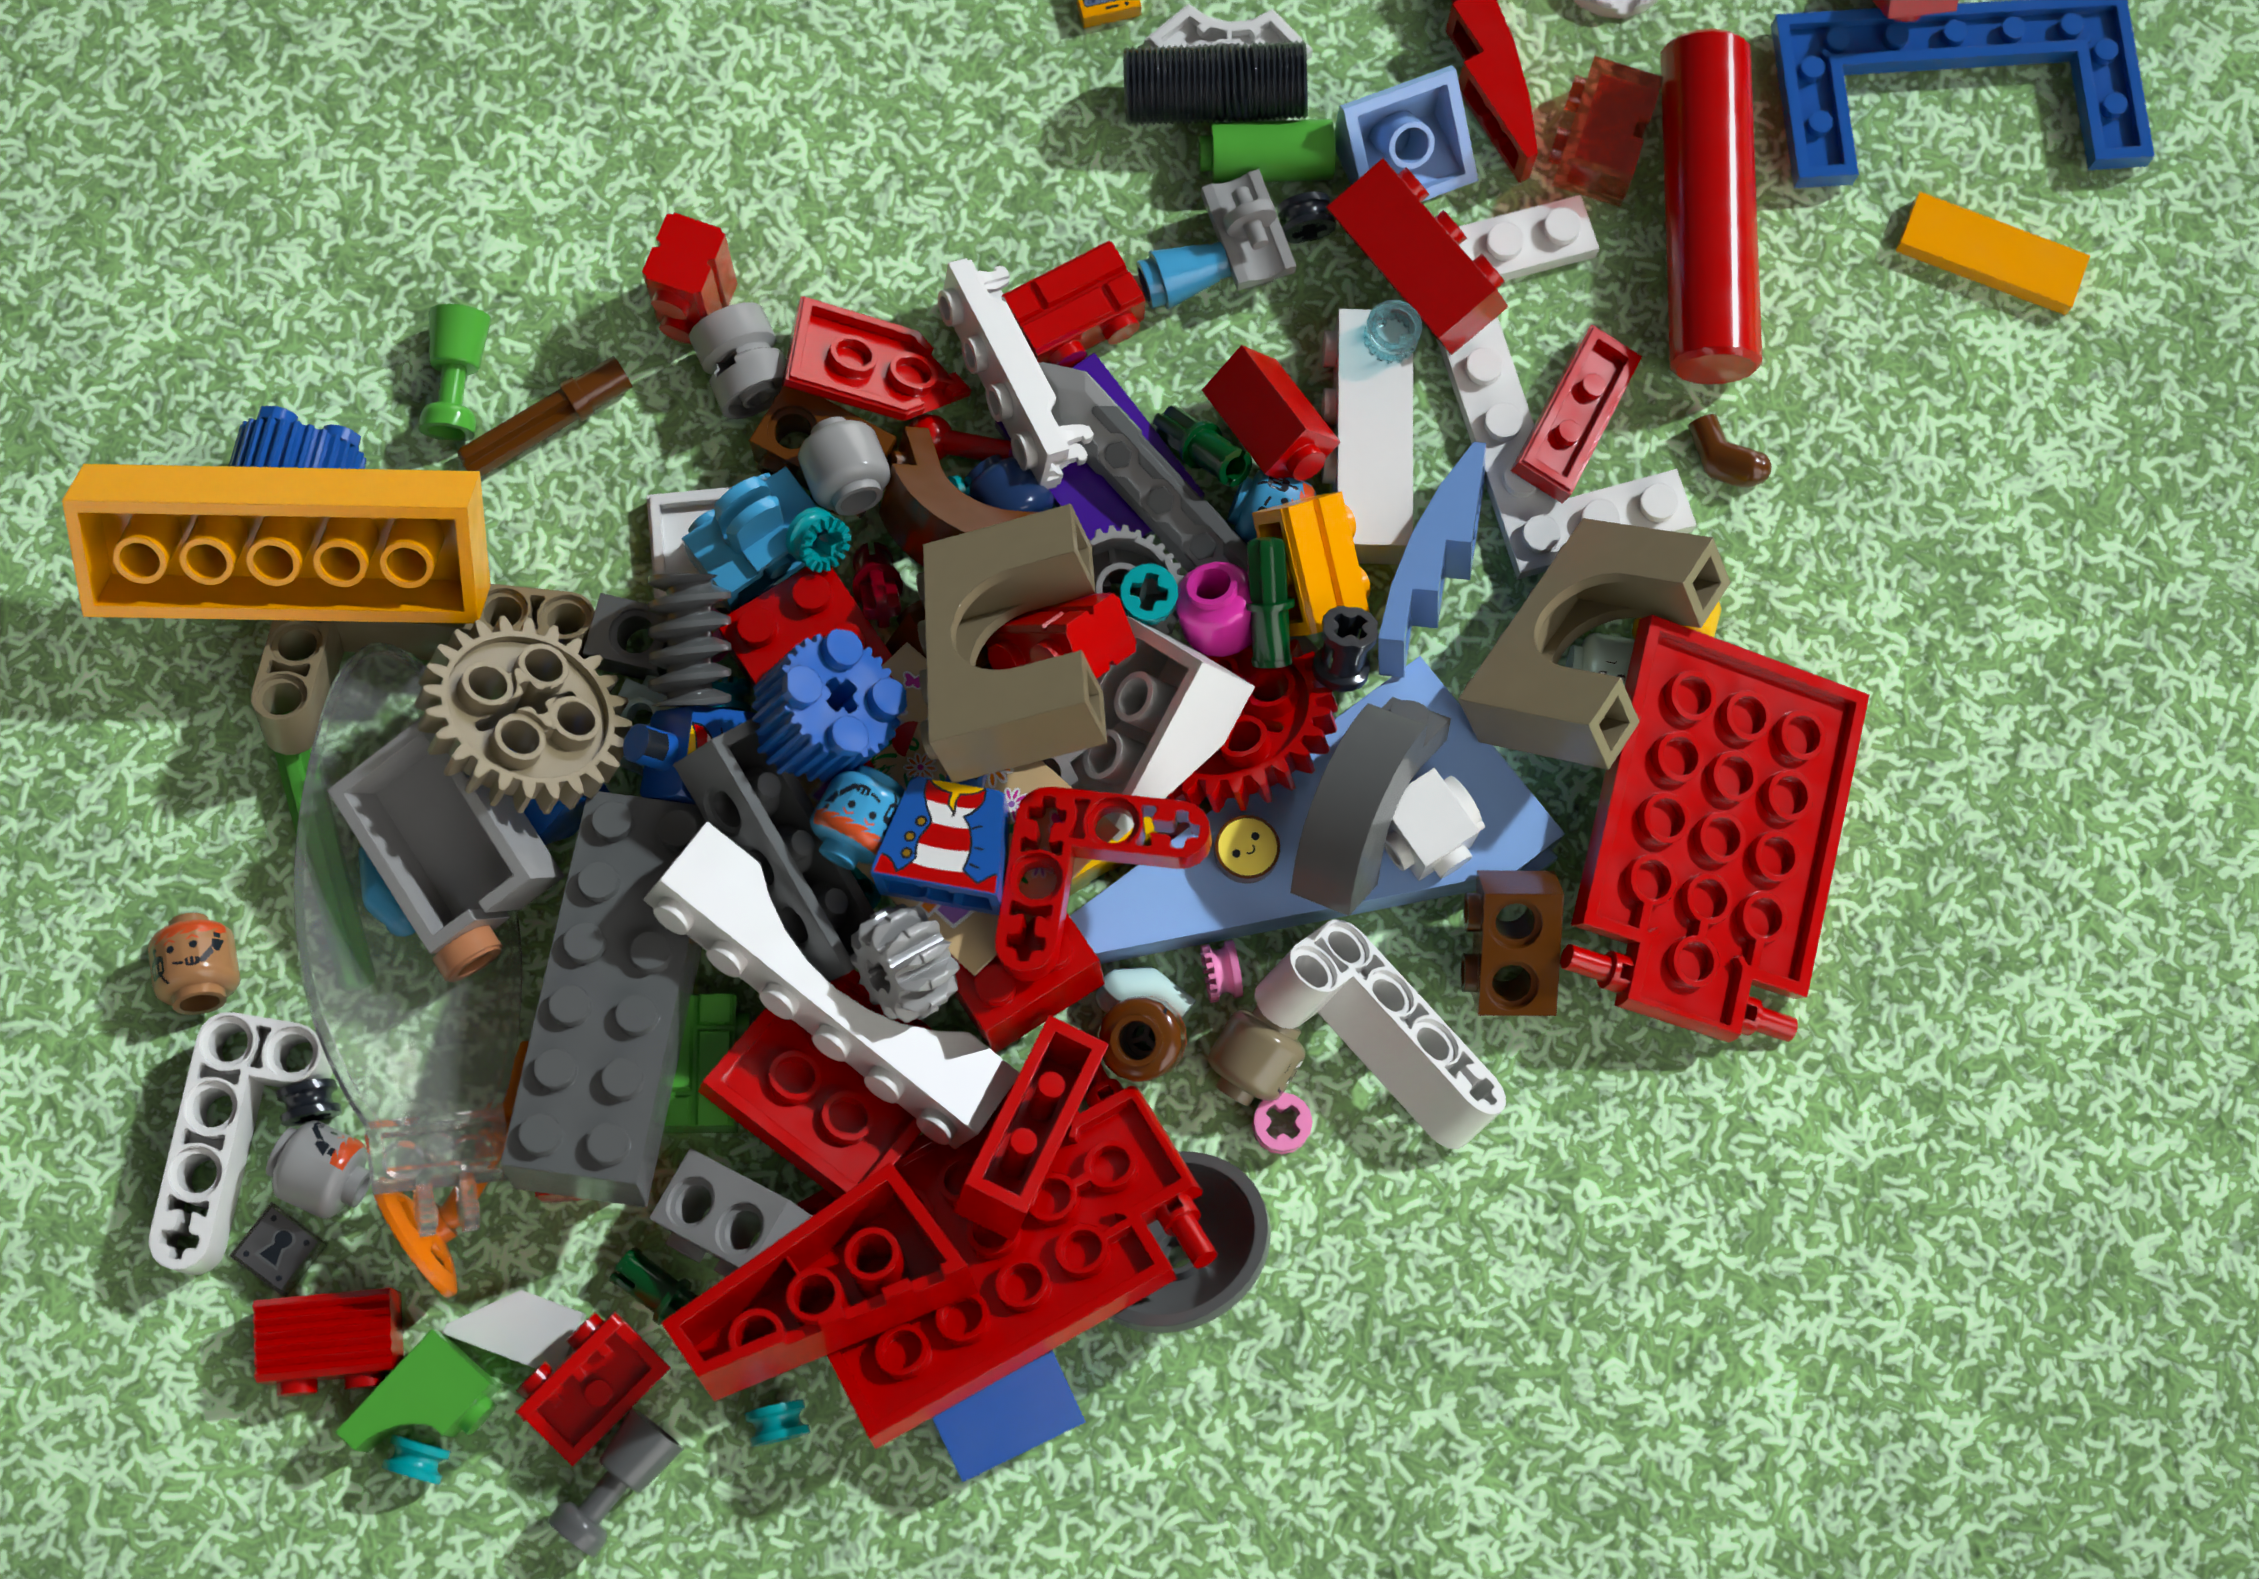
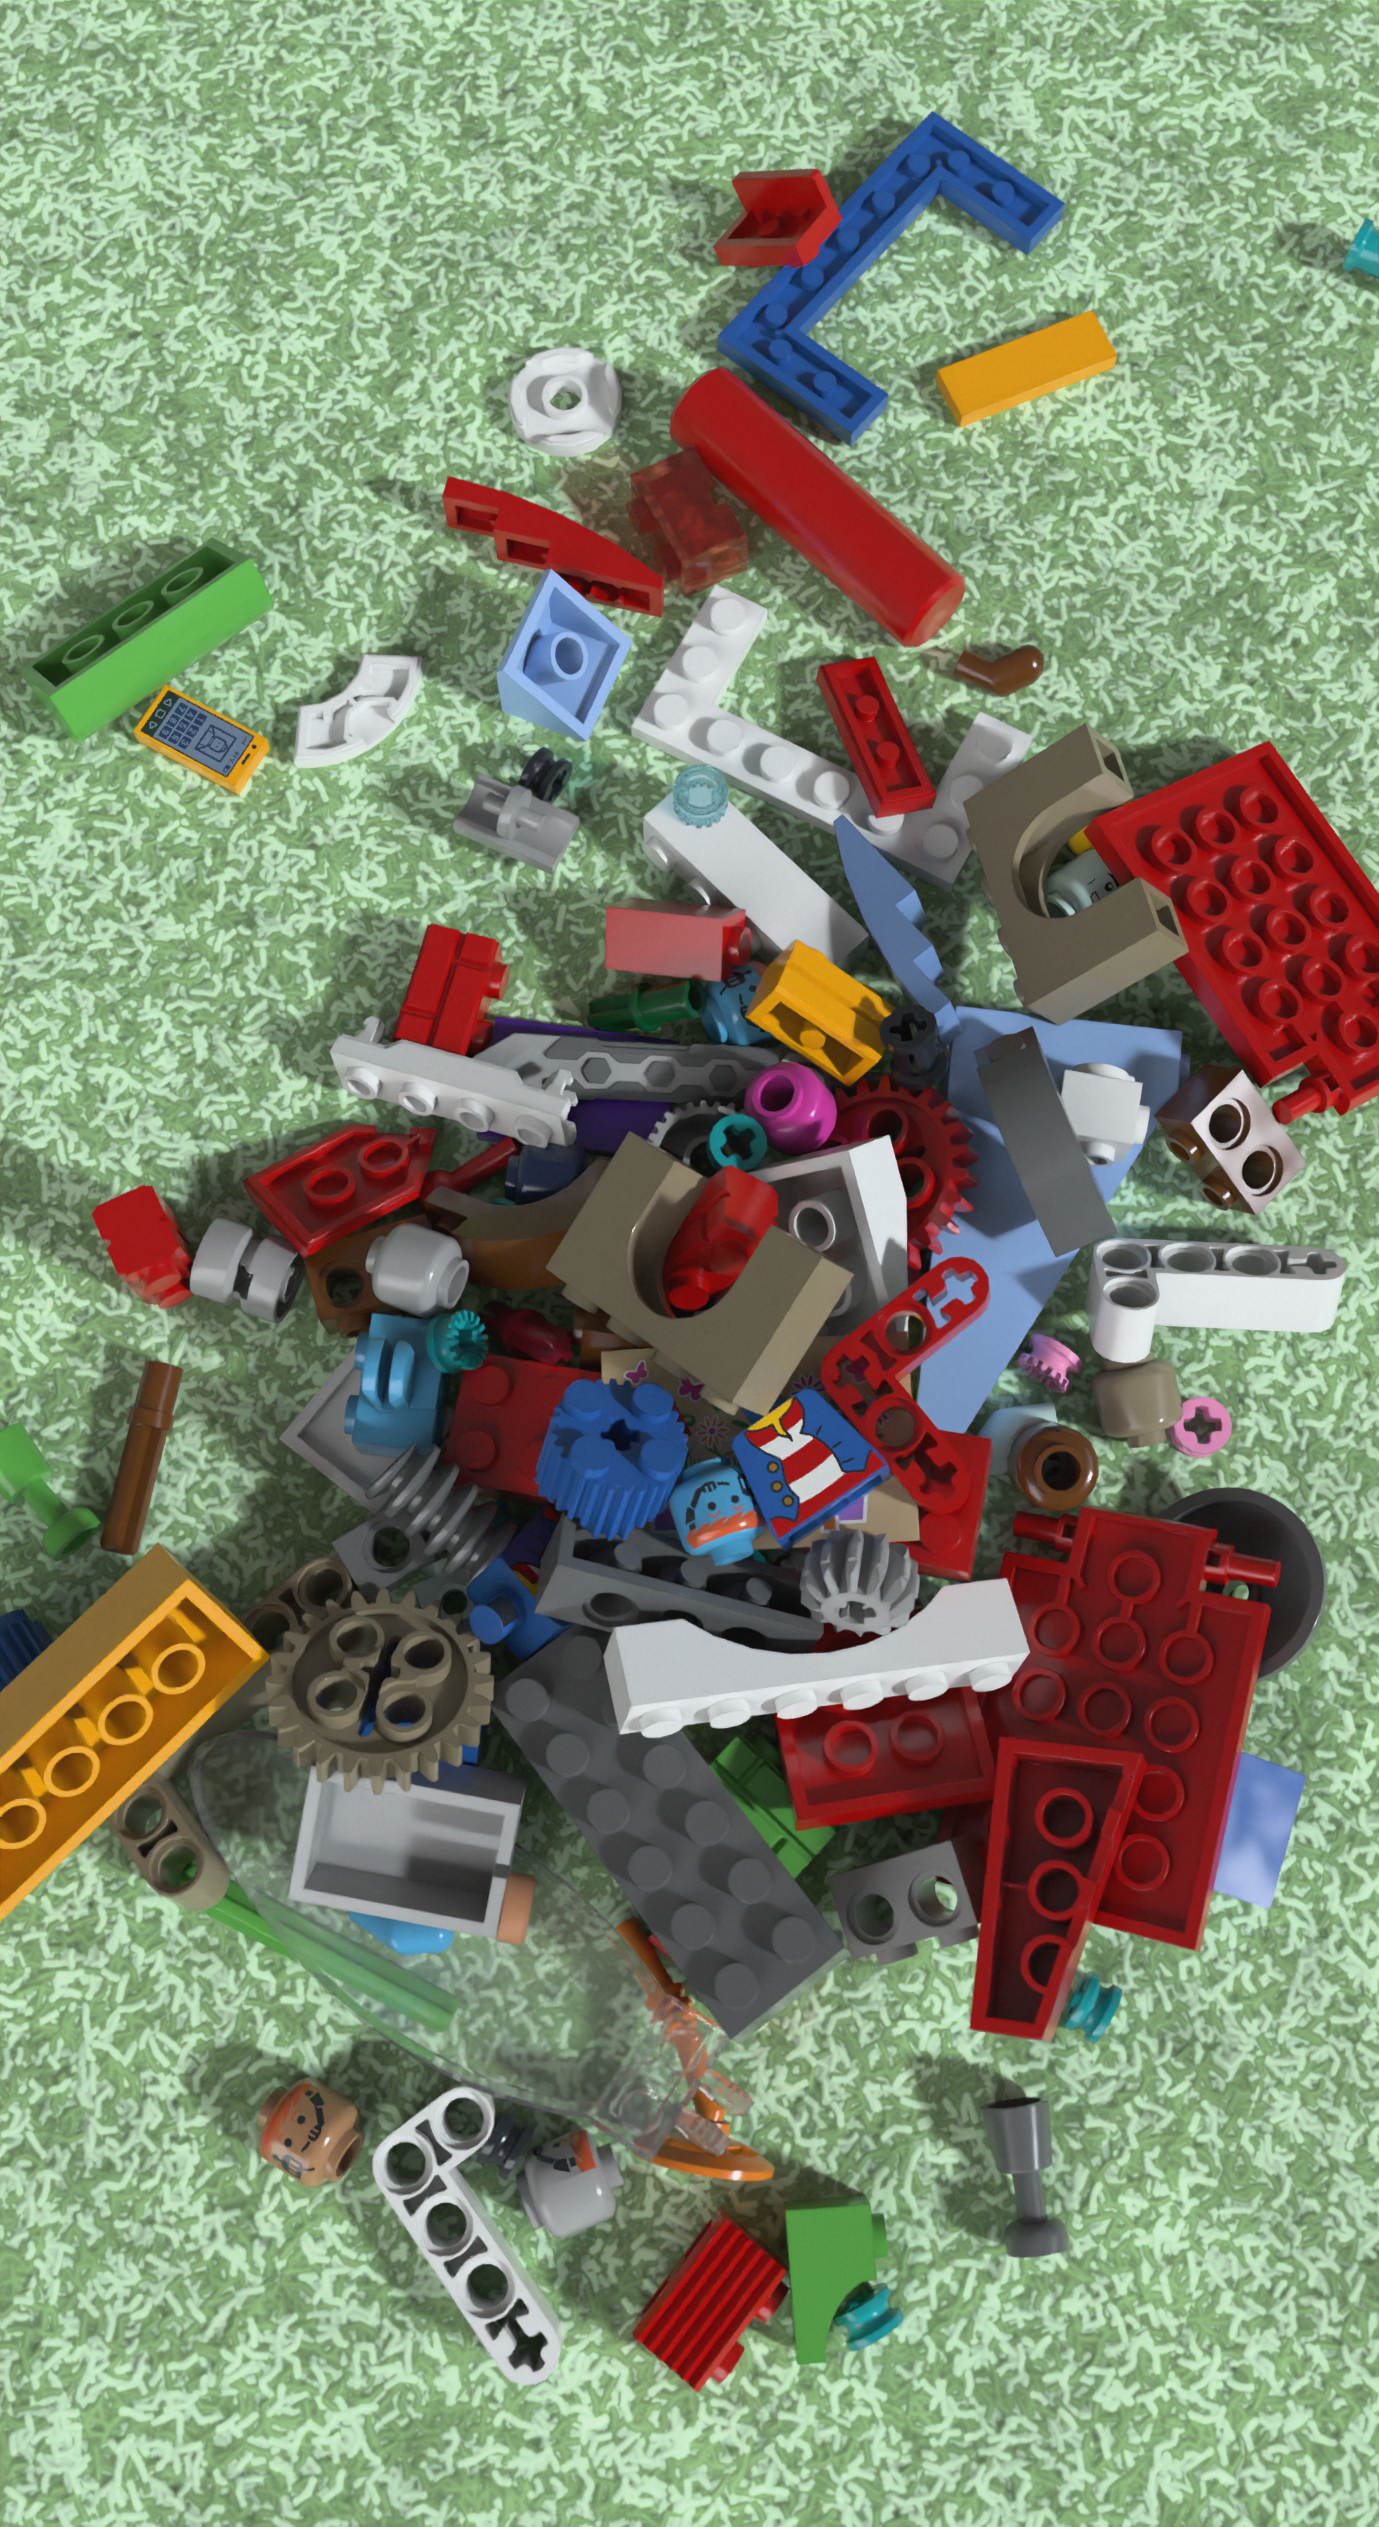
camera: 40 degrees left, 0 degrees up
(279, 1249) = (599, 2273): tile -> none
(520, 1329) = (839, 2137): white tile -> none
(591, 1386) = (935, 2126): red bracket -> none
(651, 1285) = (915, 2002): dark green axle -> none
(1030, 1128) = (1062, 1609): red brick -> none
(1181, 272) = (499, 899): dark azure cone -> none
(1215, 83) = (372, 757): black piece -> none
(1246, 849) = (995, 1251): light yellow tile -> none
(1269, 602) = (829, 1066): dark green axle -> none
(1276, 147) = (473, 747): bright green brick -> none
(1420, 254) = (657, 724): red brick -> none

